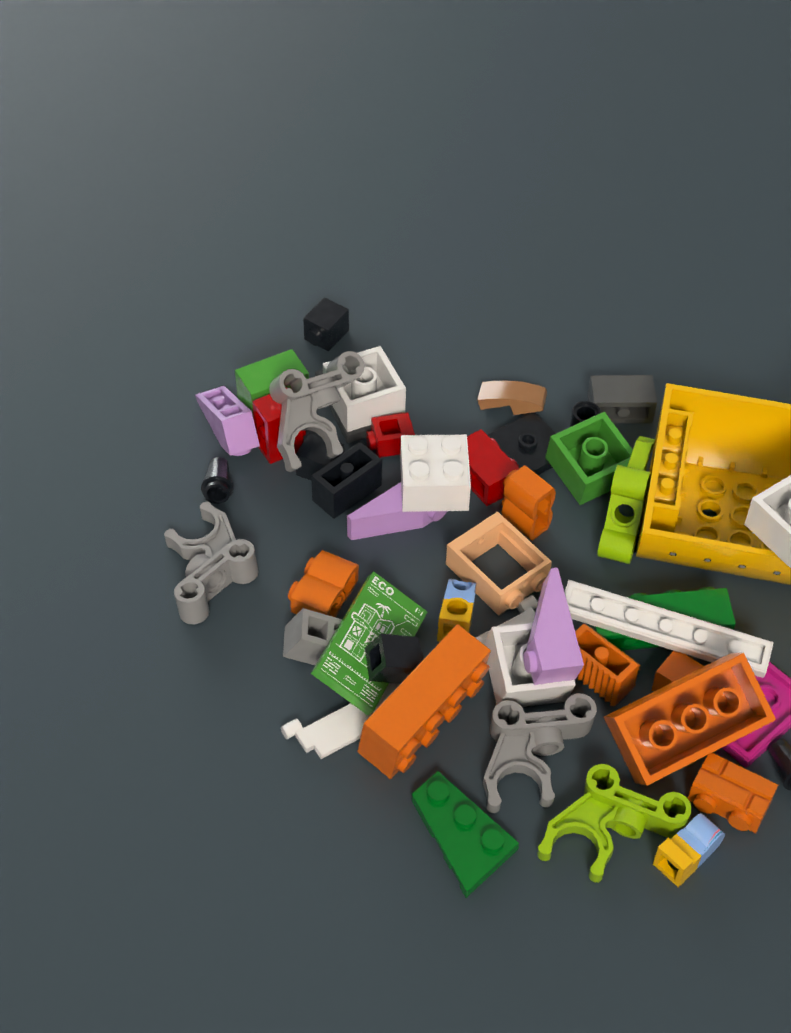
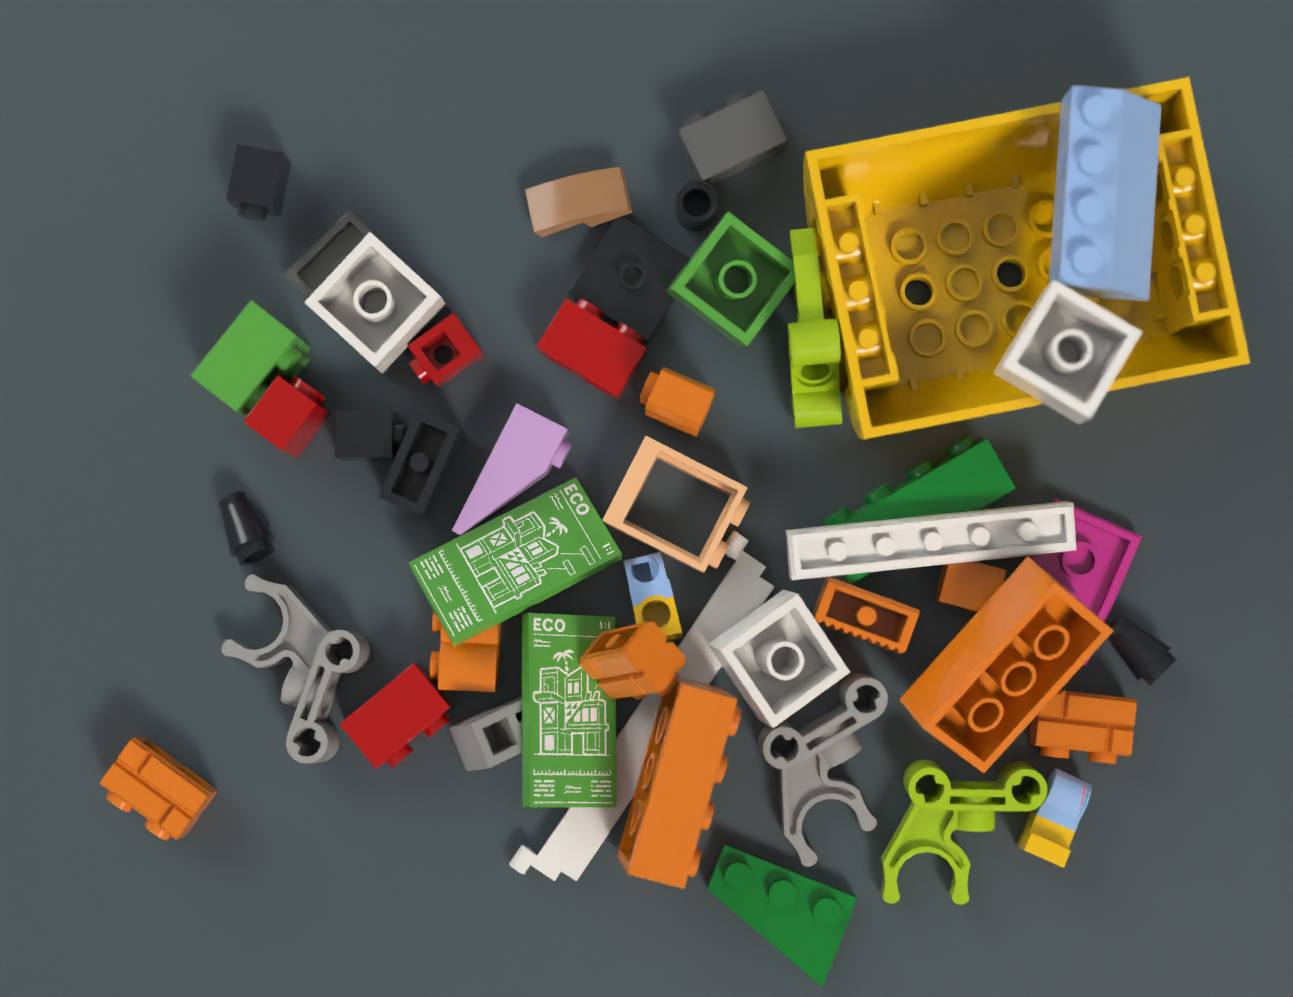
camera: 20 degrees left, 35 degrees up
(78, 590) = (157, 789): none -> orange brick
(229, 420) = (205, 419): lavender slope -> none
(254, 608) = (397, 716): none -> red brick
(305, 398) = (321, 388): light grey piece -> none
(378, 549) = (515, 561): none -> bright green tile
(392, 657) = (613, 734): black brick -> none
(430, 616) = (633, 661): none -> orange brick
(435, 473) = (542, 425): white brick -> none
(552, 644) = (801, 639): lavender slope -> none

